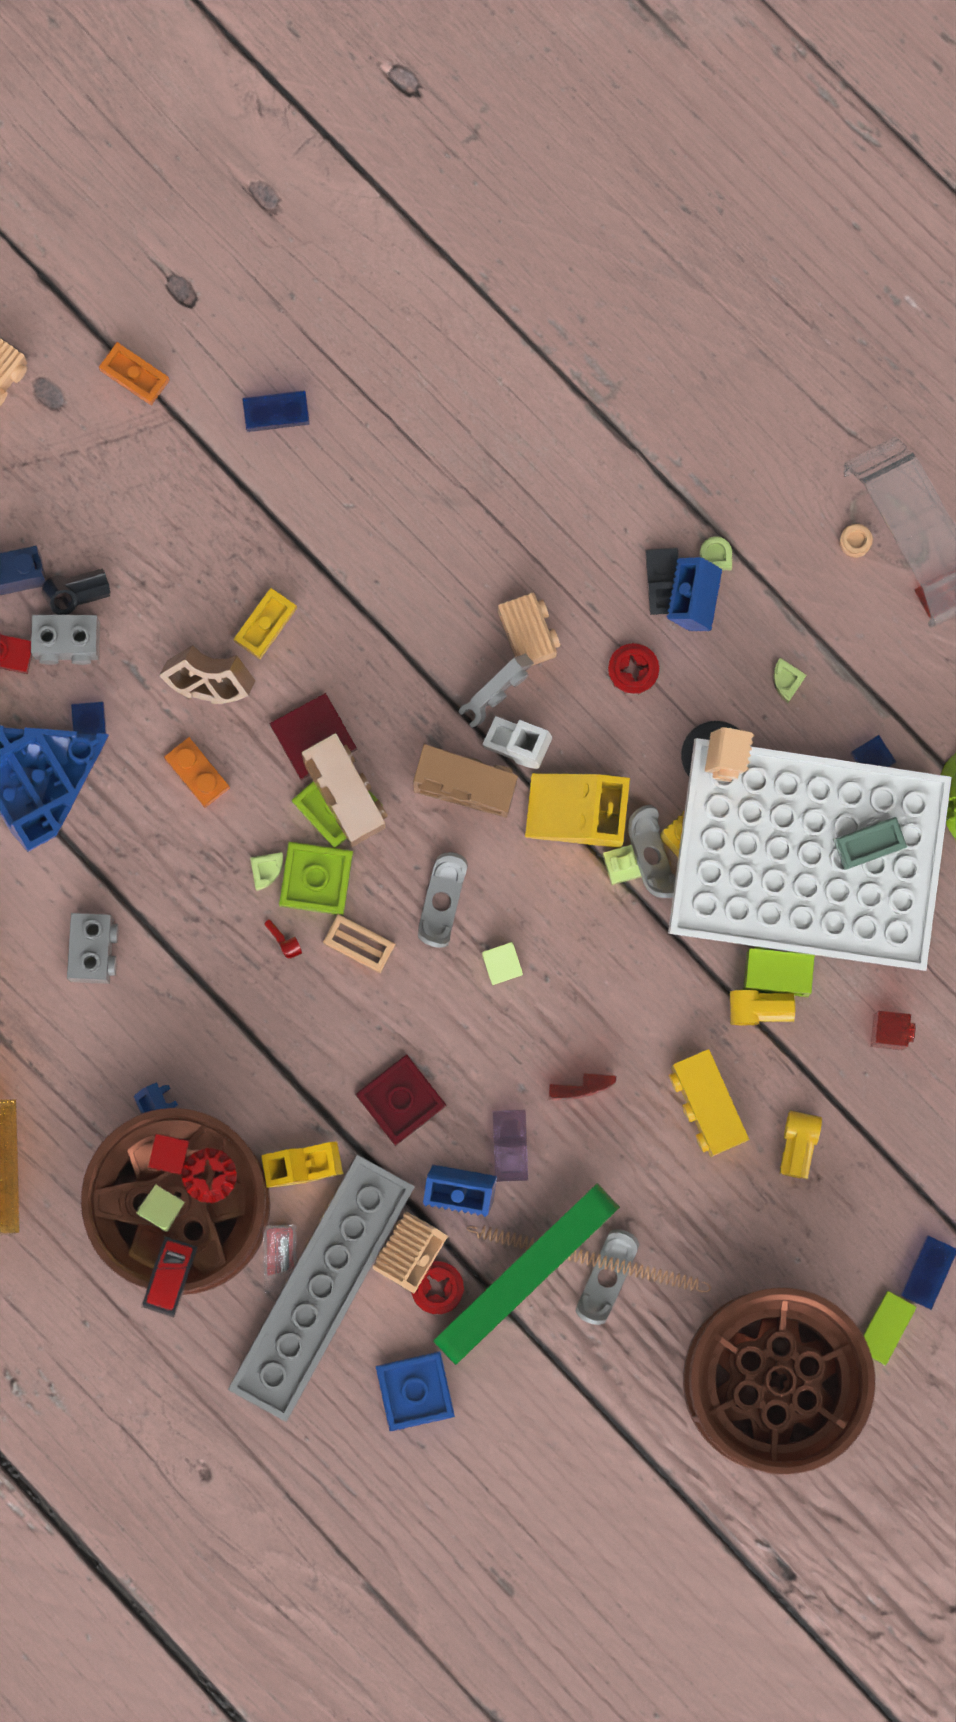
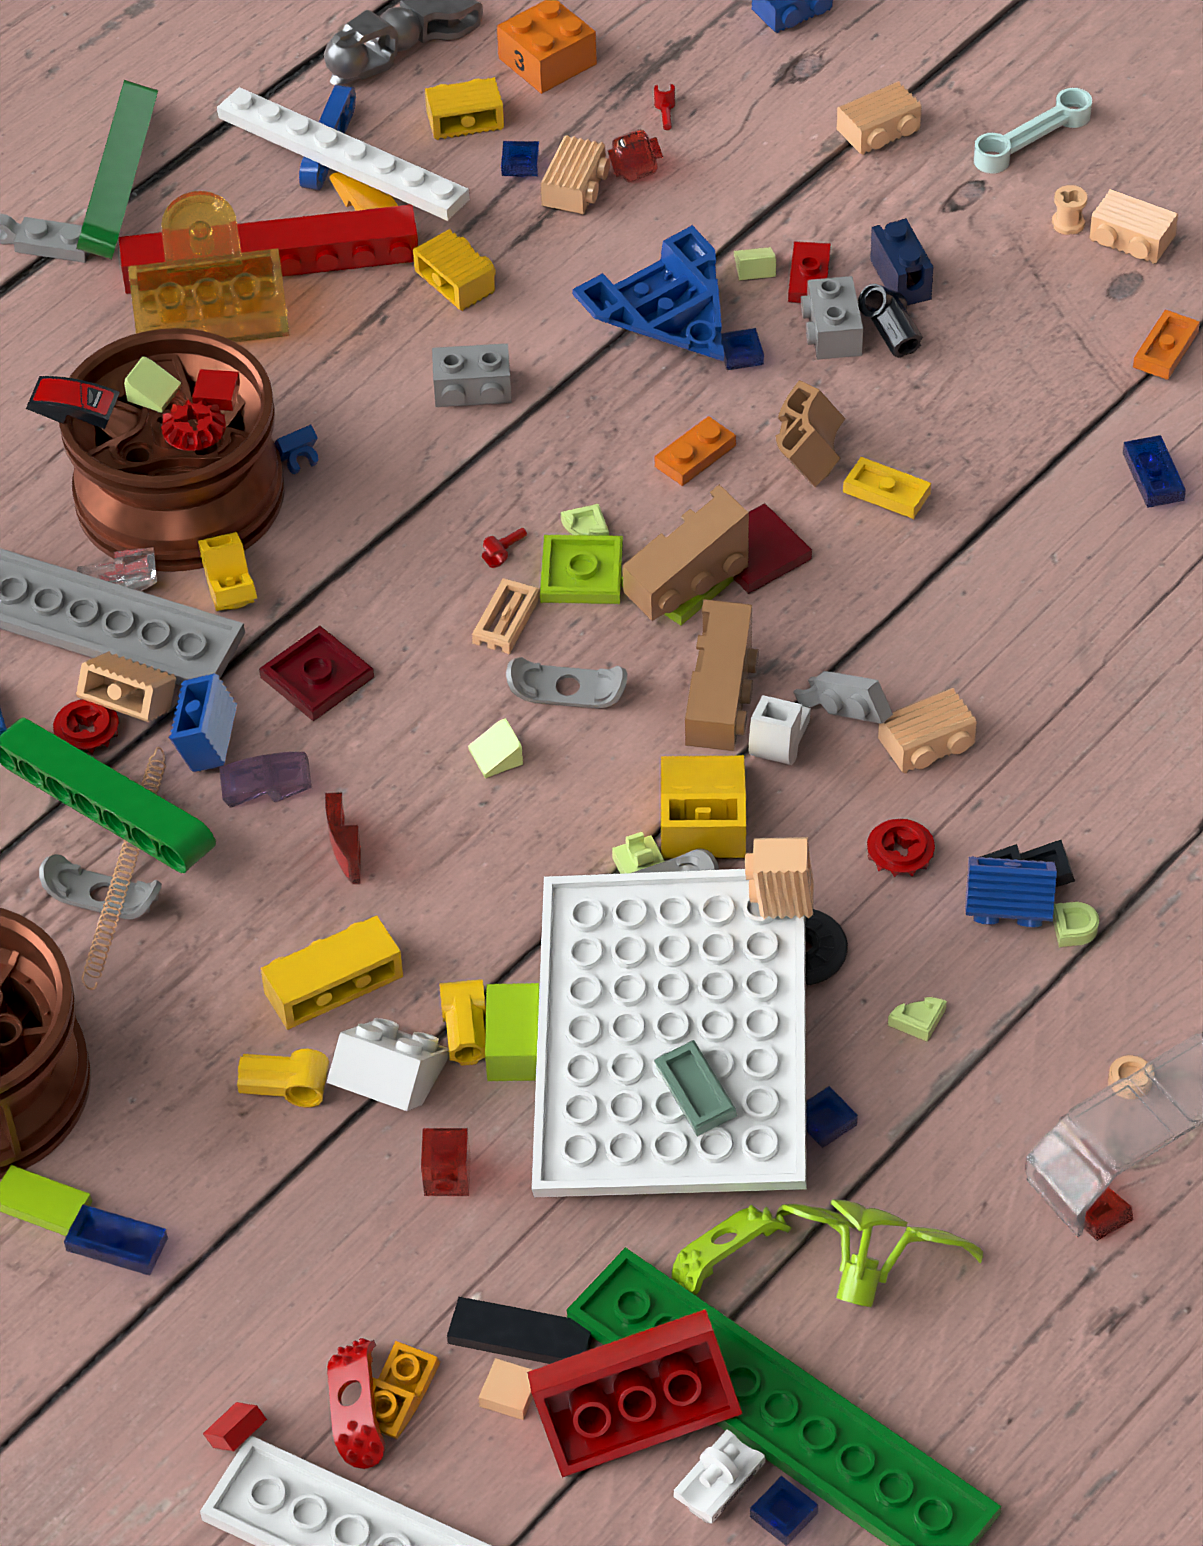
camera: 90 degrees right, 30 degrees down
(798, 1066) = (387, 1063): none -> white slope

